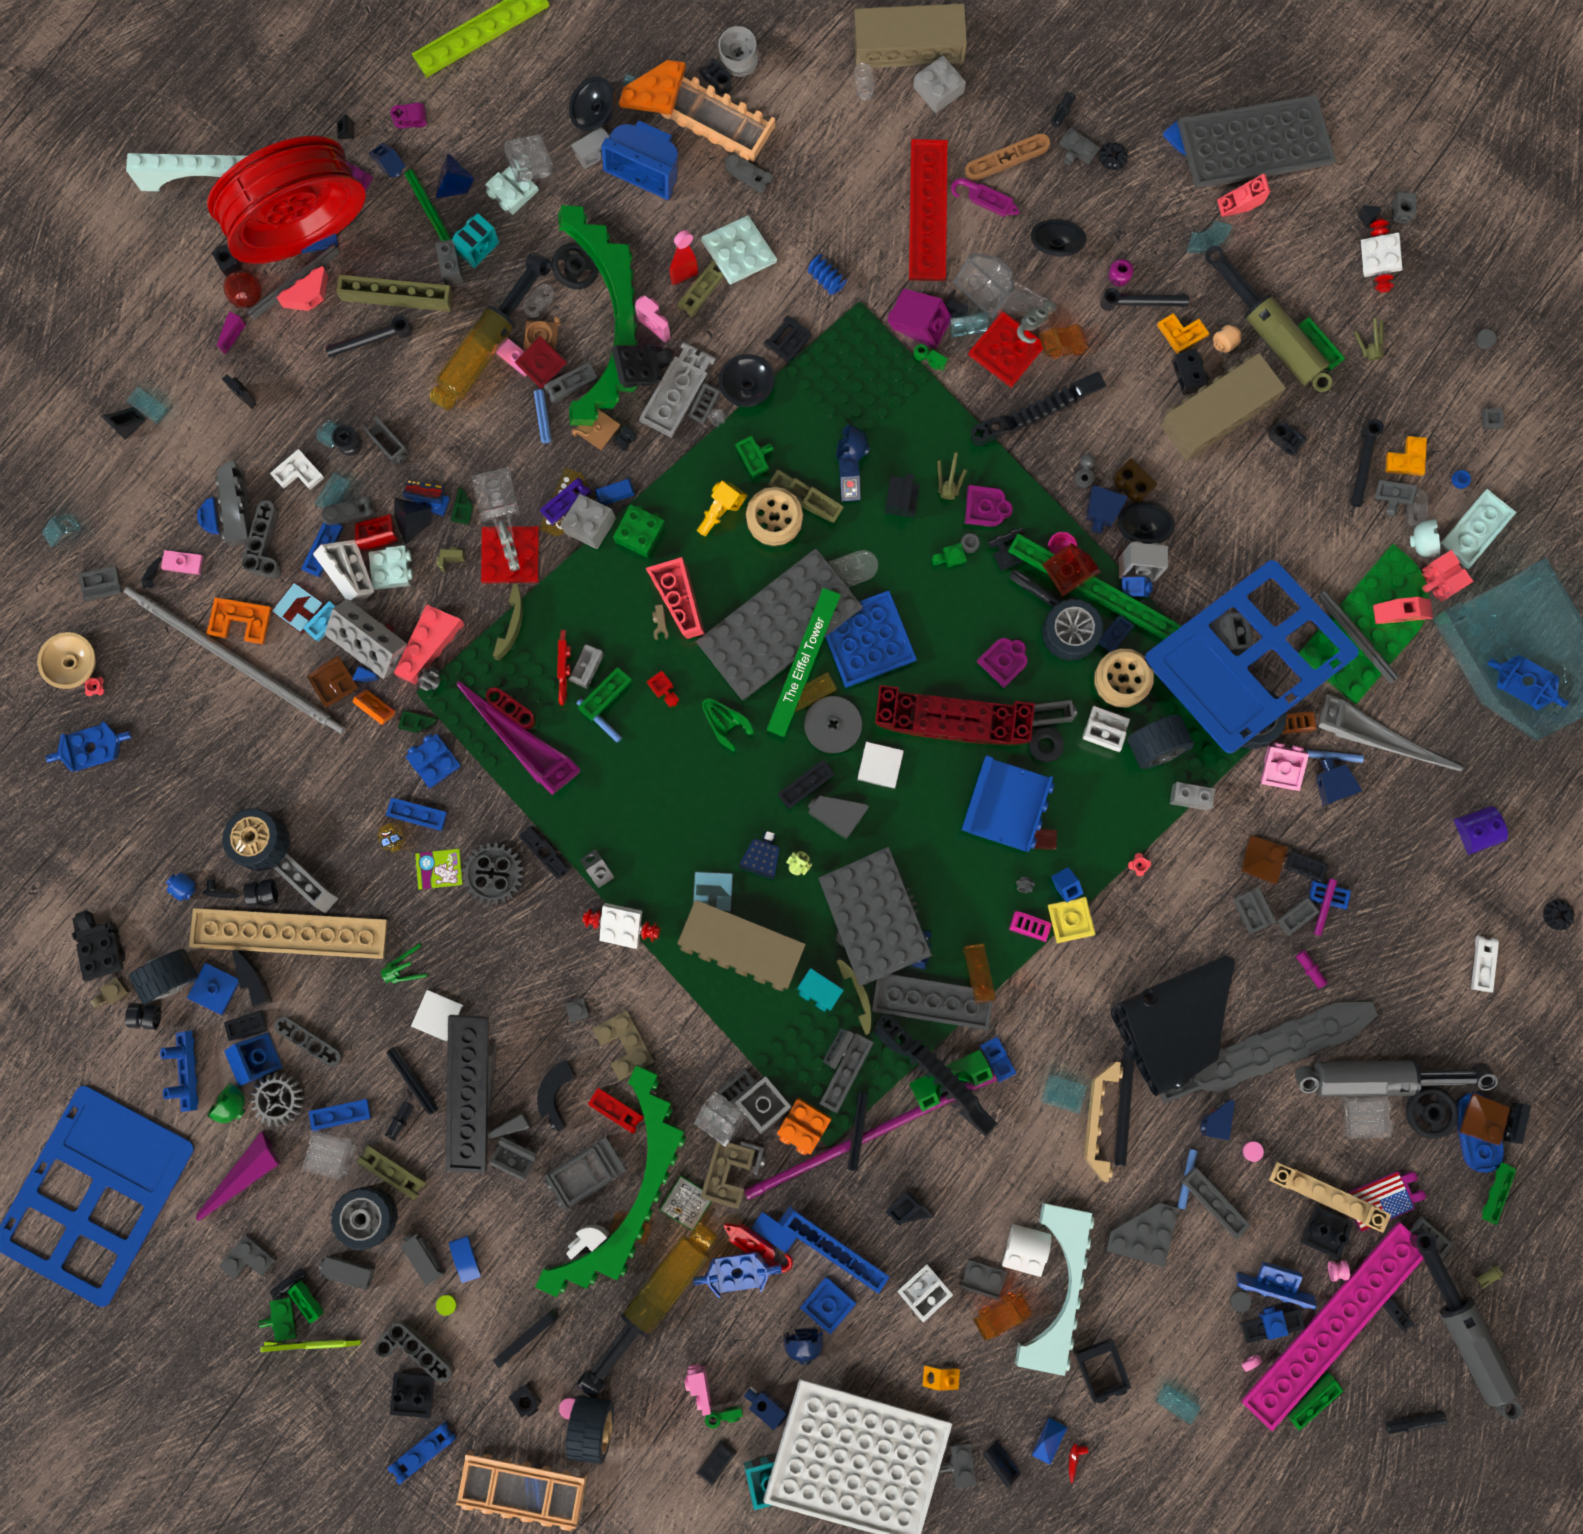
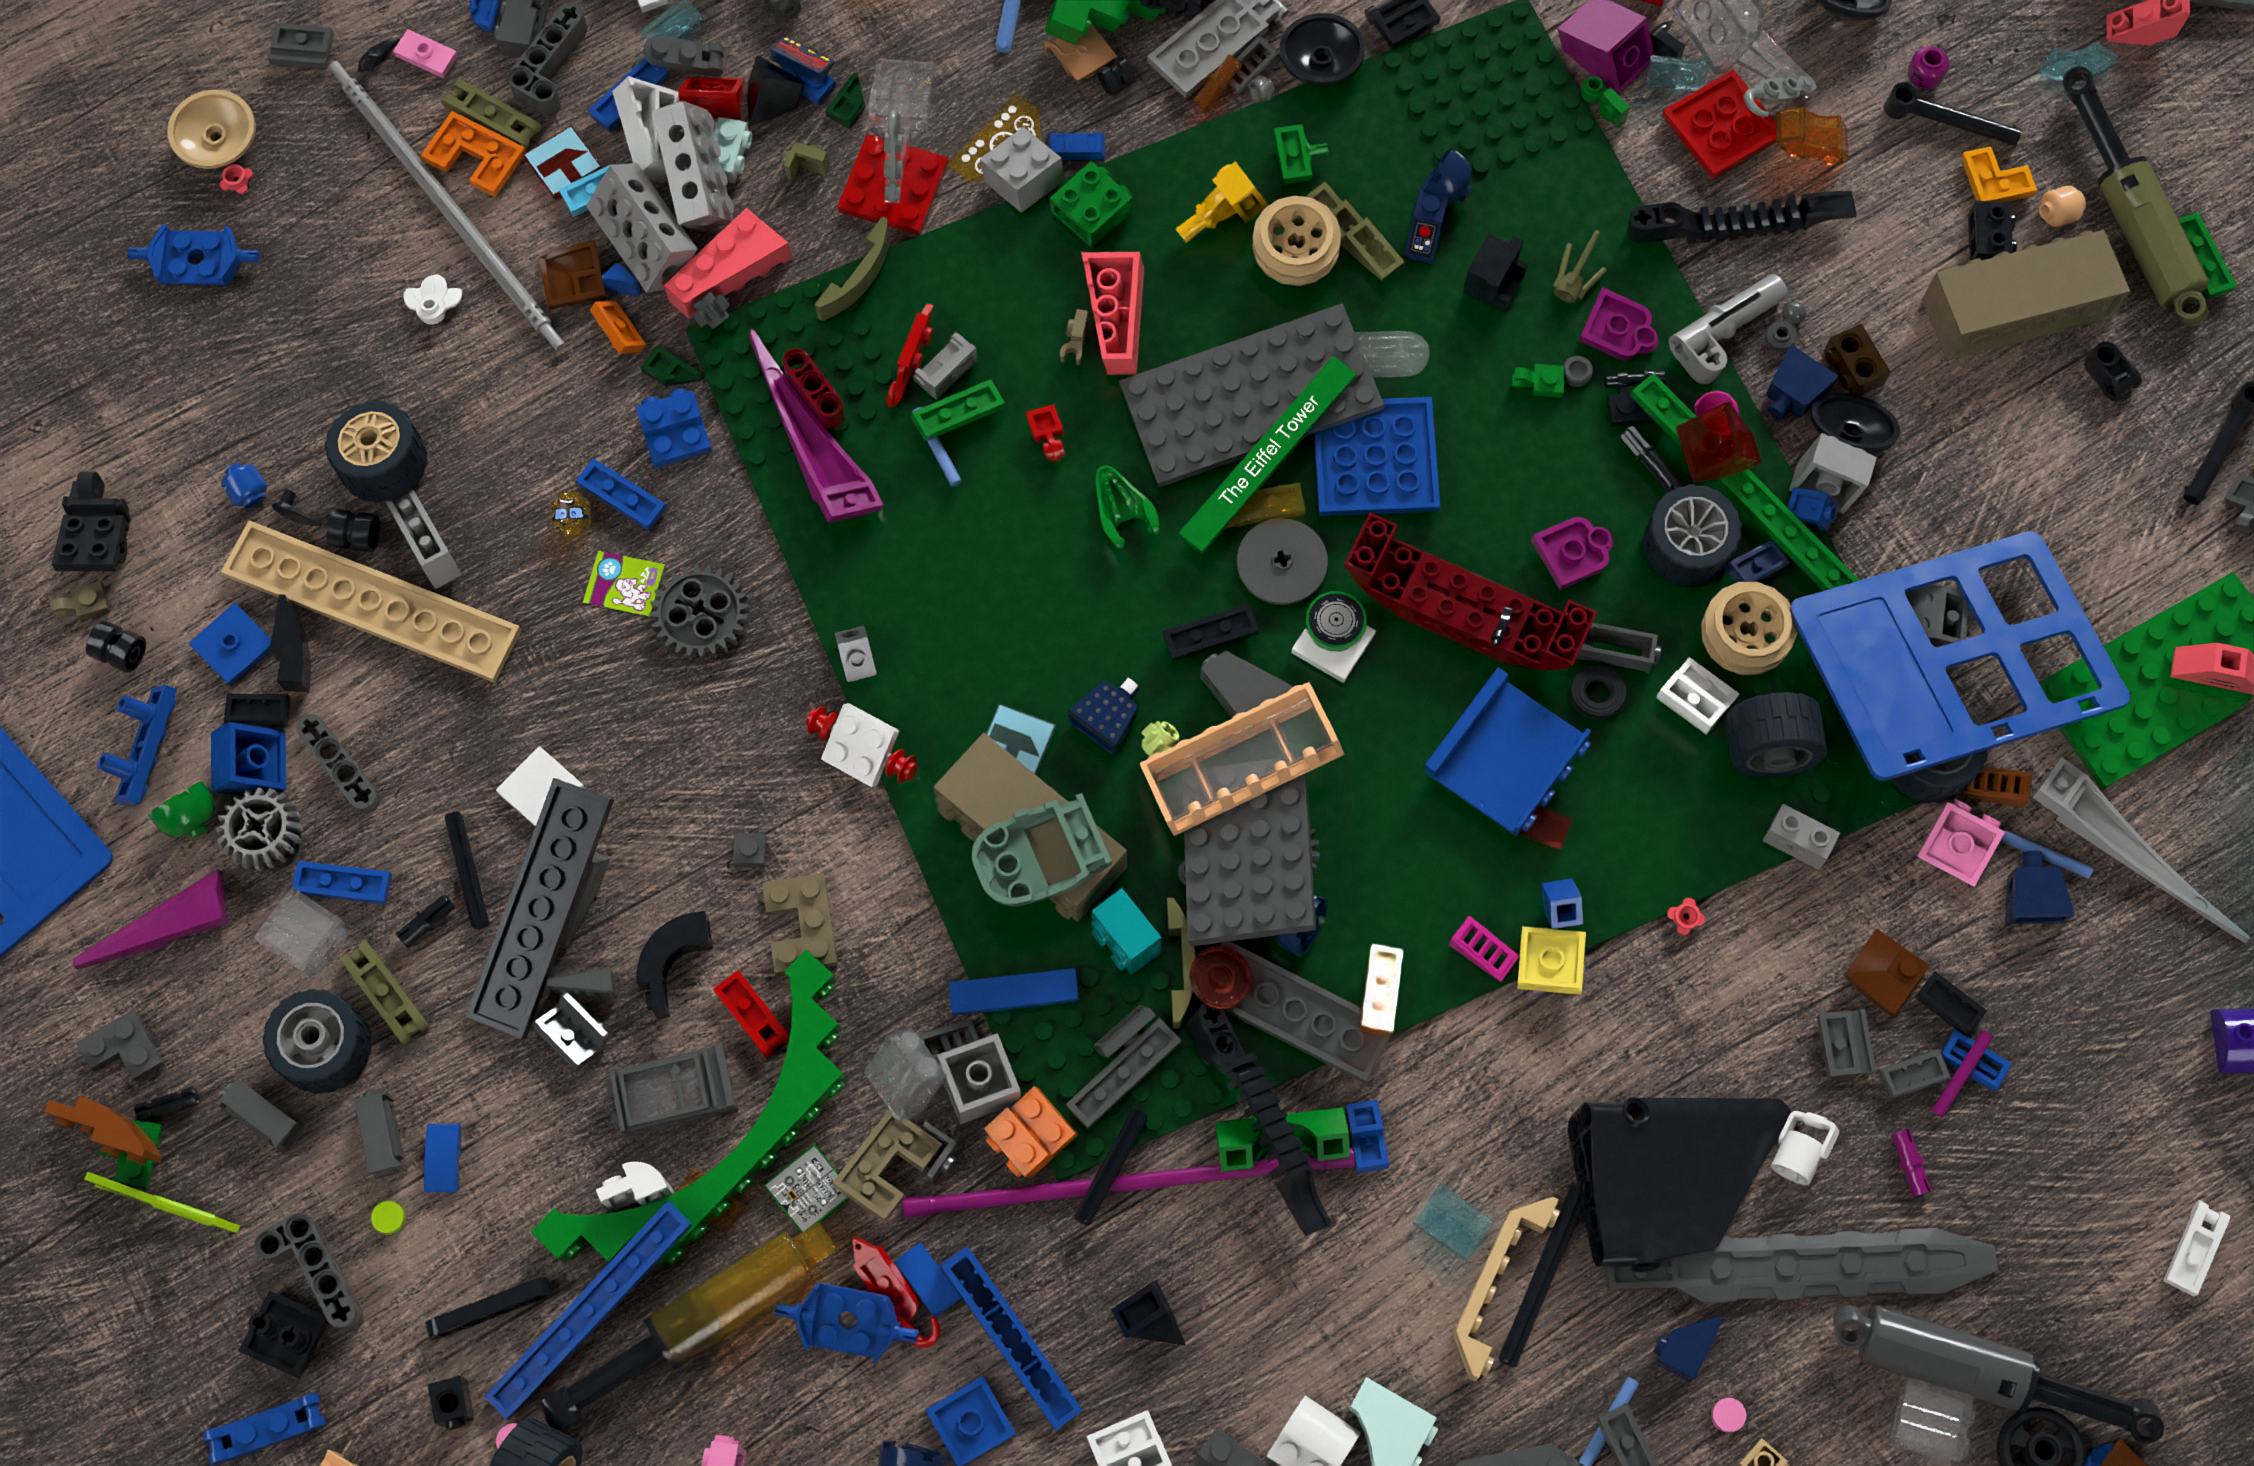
camera: 20 degrees right, 10 degrees down
(163, 976) = (167, 594): black wheel -> none
(240, 590) = (491, 113): none -> olive plate
(250, 722) = (432, 299): none -> white plate
(261, 1313) = (107, 1128): none -> dark orange slope
(305, 1302) = (181, 1138): green plate -> none
(380, 593) = (685, 166): none -> light grey brick
(392, 971) = (499, 704): green plant -> none
(552, 862) = (794, 625): black piece -> none
(562, 503) = (986, 137): dark purple plate -> none
(586, 1321) = (588, 1310): none -> blue plate
(688, 422) = (1217, 82): none -> clear orange pin
(741, 980) = (1010, 867): none -> sand green slope
(764, 1045) = (1013, 991): none -> blue tile
(852, 862) = (1241, 758): none -> window
(878, 753) = (1335, 621): none -> tile
(884, 998) = (1220, 977): none -> clear red tile
(980, 726) = (1499, 634): none -> black piece
(1025, 885) = (1496, 885): dark grey plate -> none
(1037, 498) = (1722, 323): none -> light grey piece
(1248, 988) = (1799, 1153): none -> white piece
(1357, 636) = (2136, 686): dark grey axle -> none

